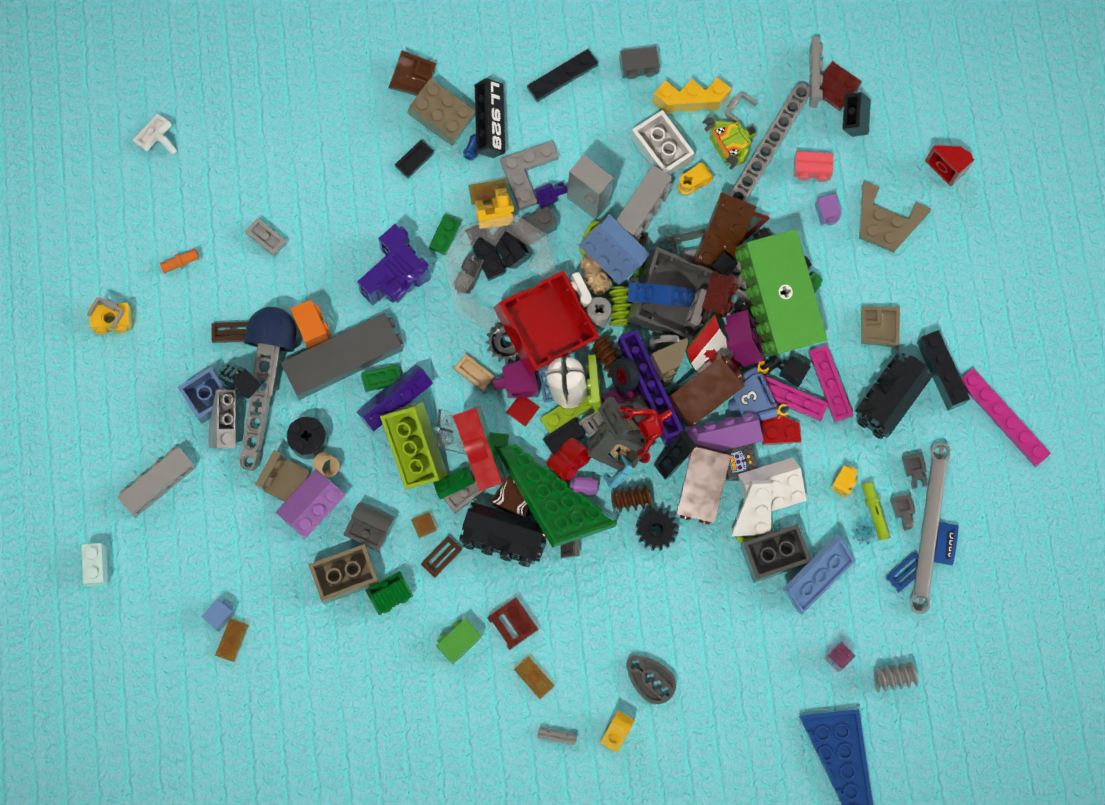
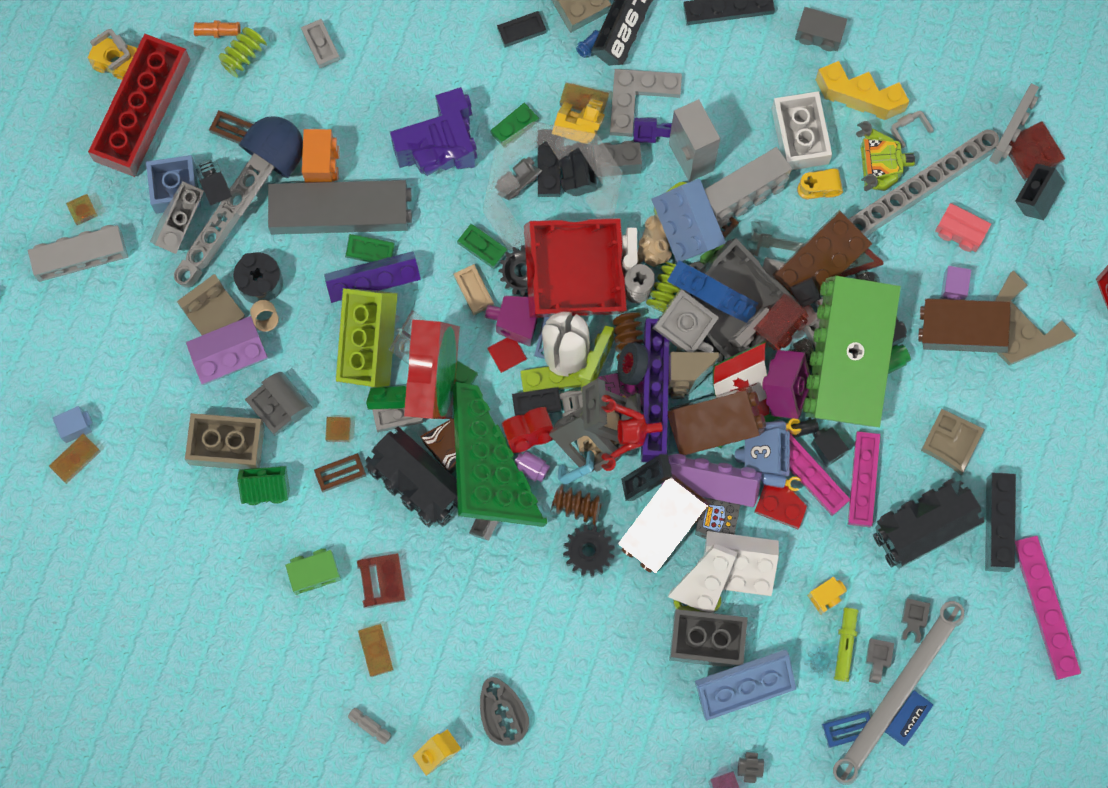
camera: 30 degrees right, 0 degrees up
(142, 446) = (81, 209): none -> clear orange plate
(149, 346) = (139, 105): none -> red brick
(206, 269) = (241, 50): none -> lime piece
(465, 337) = (482, 246): none -> green plate
(650, 326) = (685, 322): none -> light grey plate
(850, 237) = (965, 325): none -> reddish brown brick
(851, 633) = (750, 767): none -> dark grey gear

